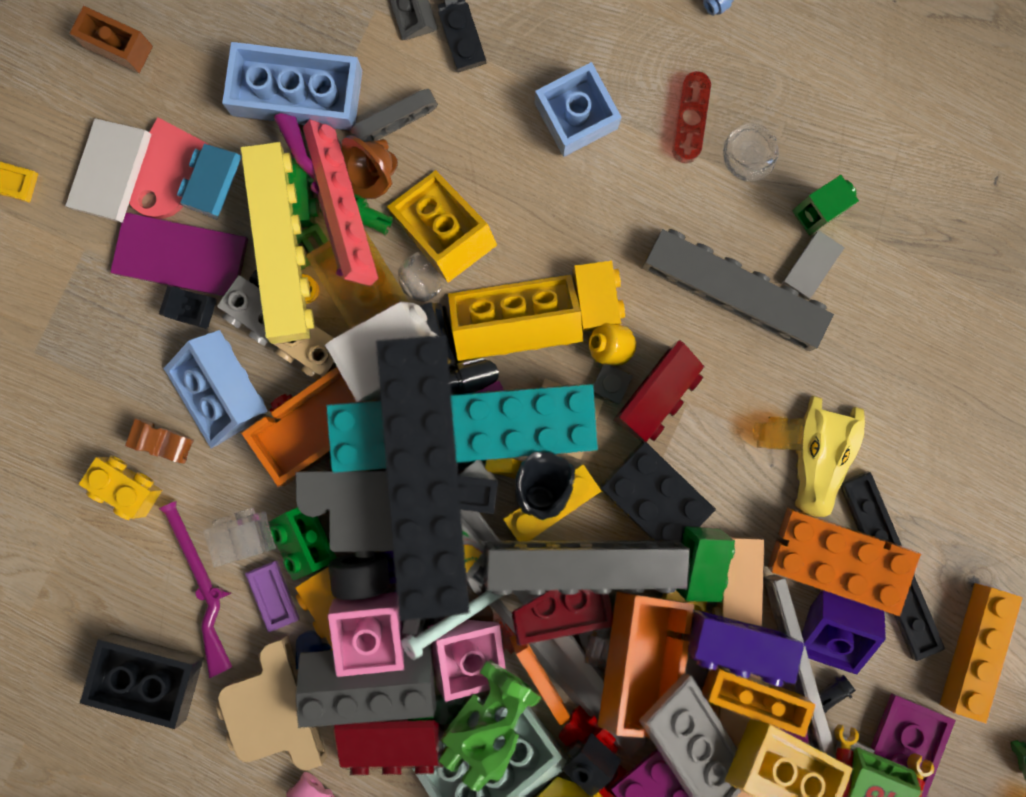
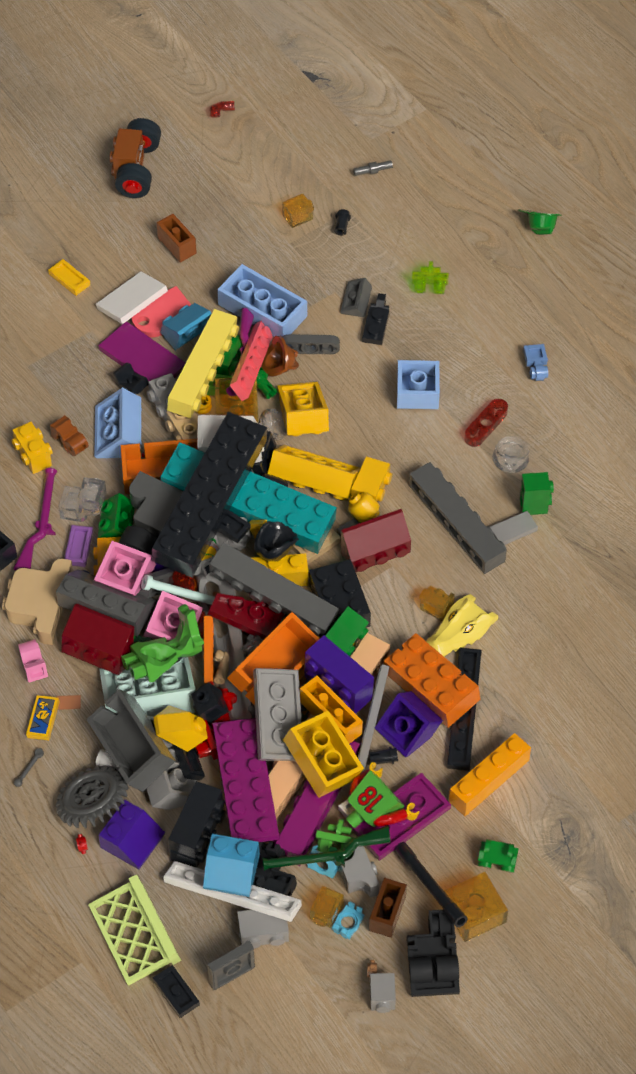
camera: 30 degrees right, 30 degrees down
(563, 677) = (223, 667): none -> tan arm

